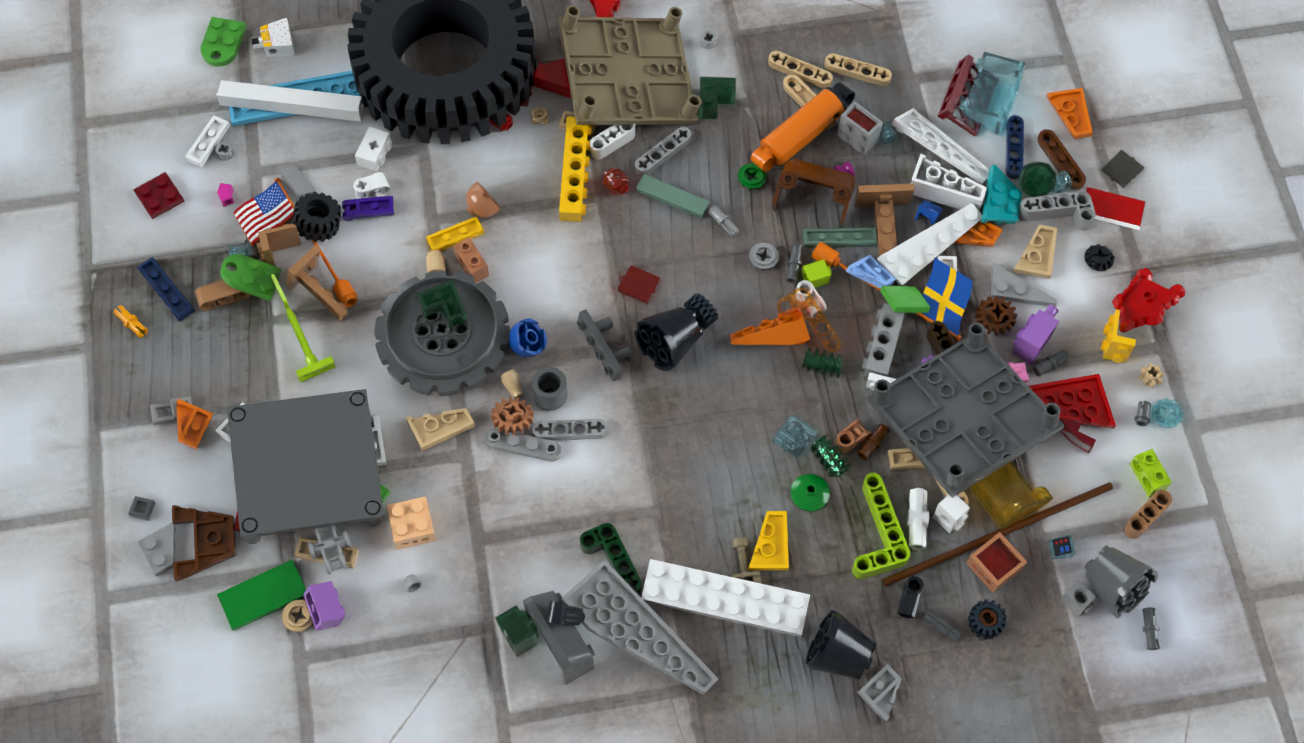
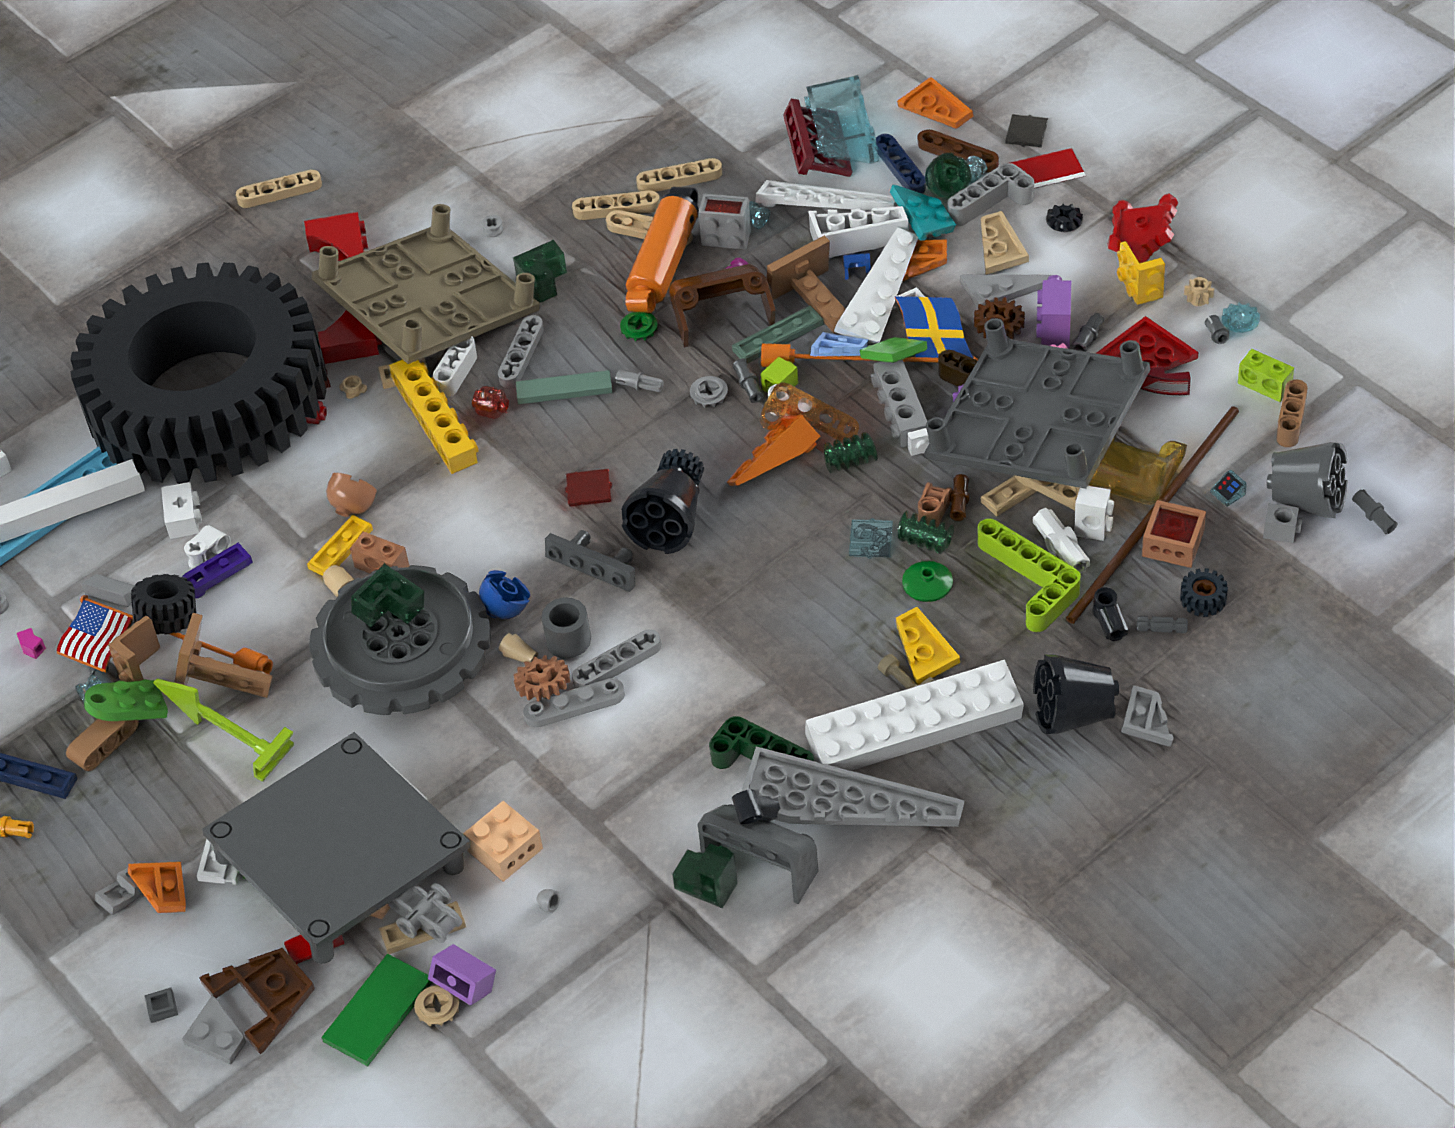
camera: 25 degrees left, 15 degrees down
(440, 427) = (462, 739): tan wing -> none

